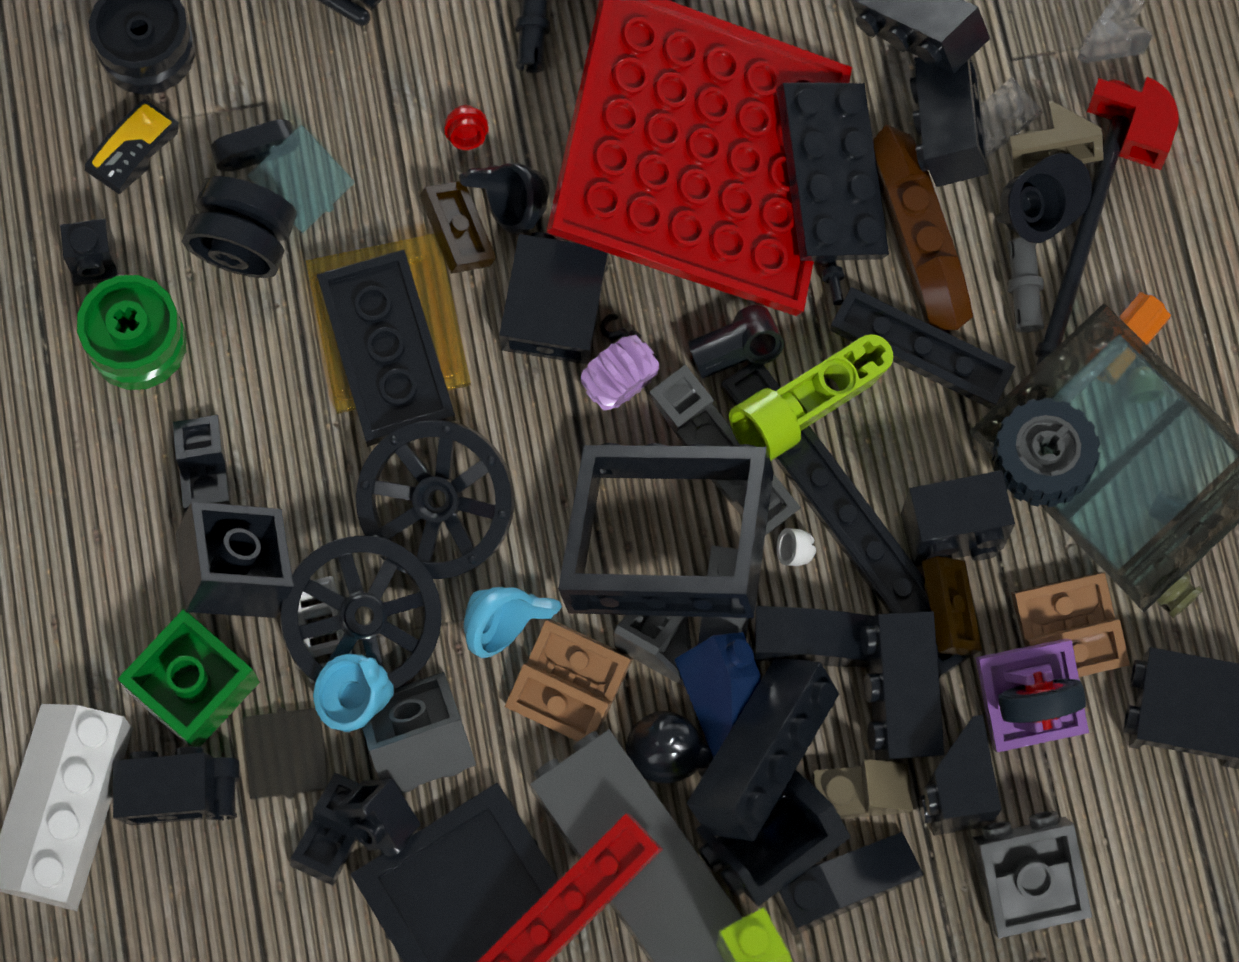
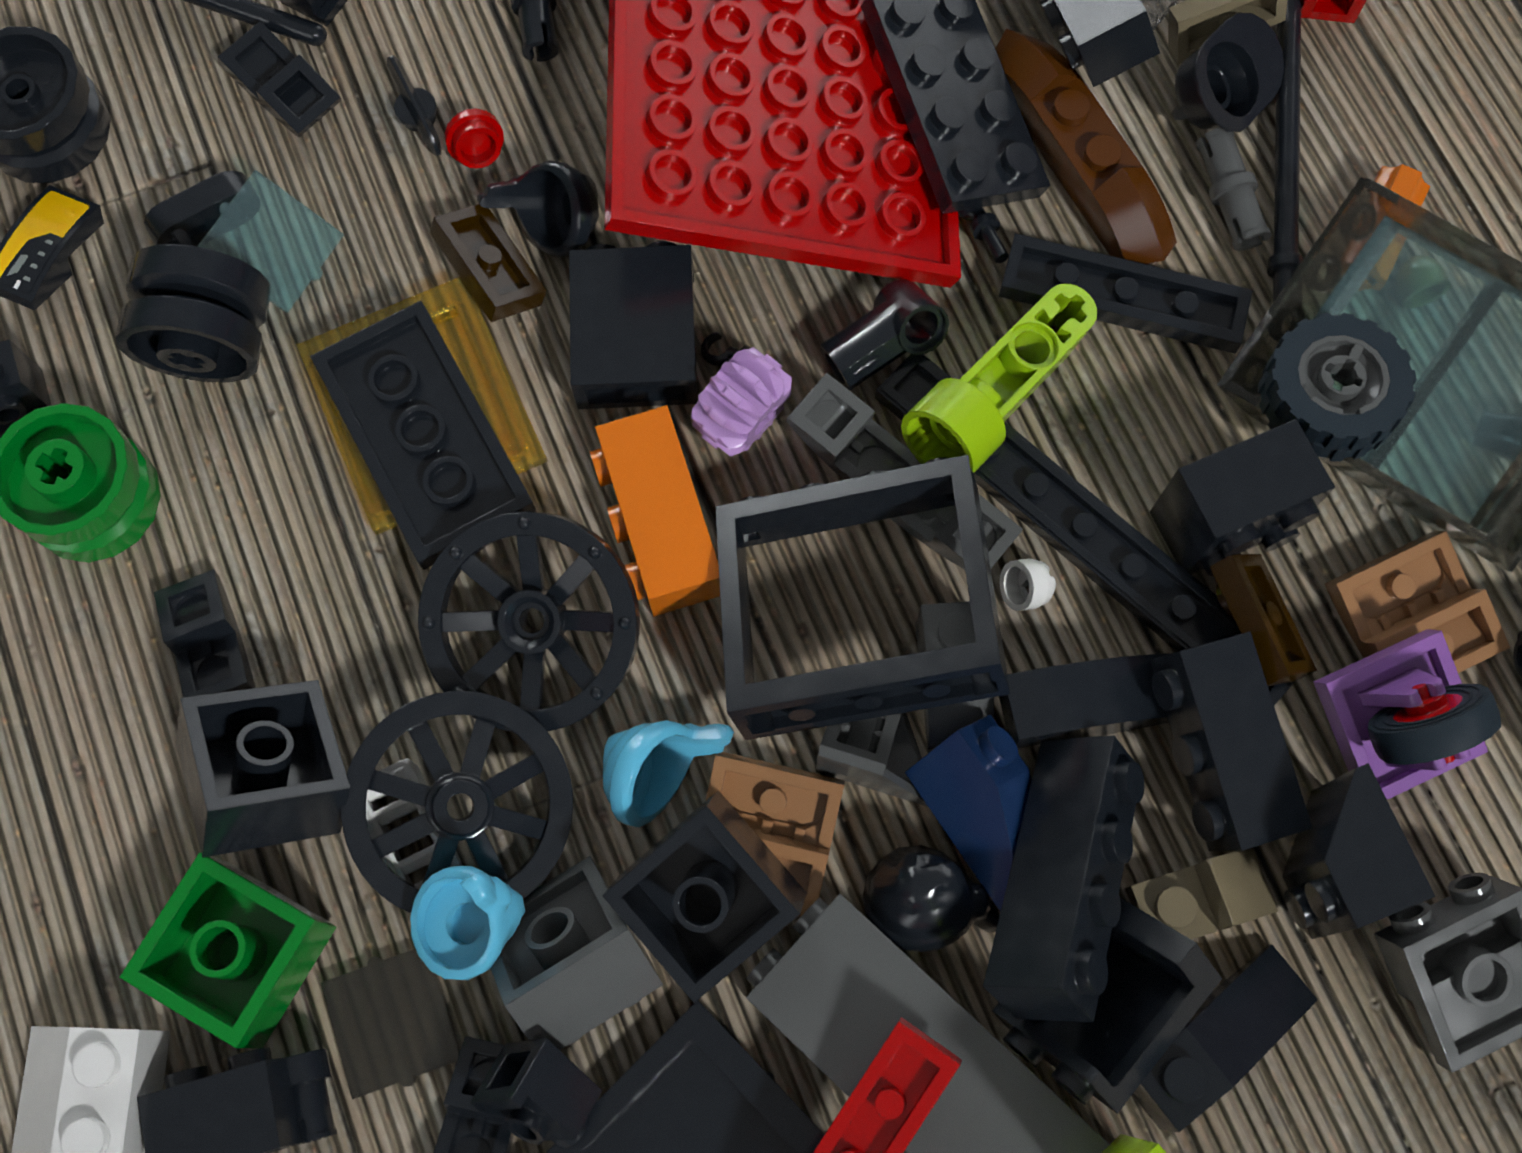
camera: 10 degrees left, 0 degrees up
(328, 49) = (279, 79): none -> black slope
(426, 91) = (414, 106): none -> black piece
(518, 710) = (706, 896): none -> black brick
(541, 438) = (657, 511): none -> orange brick

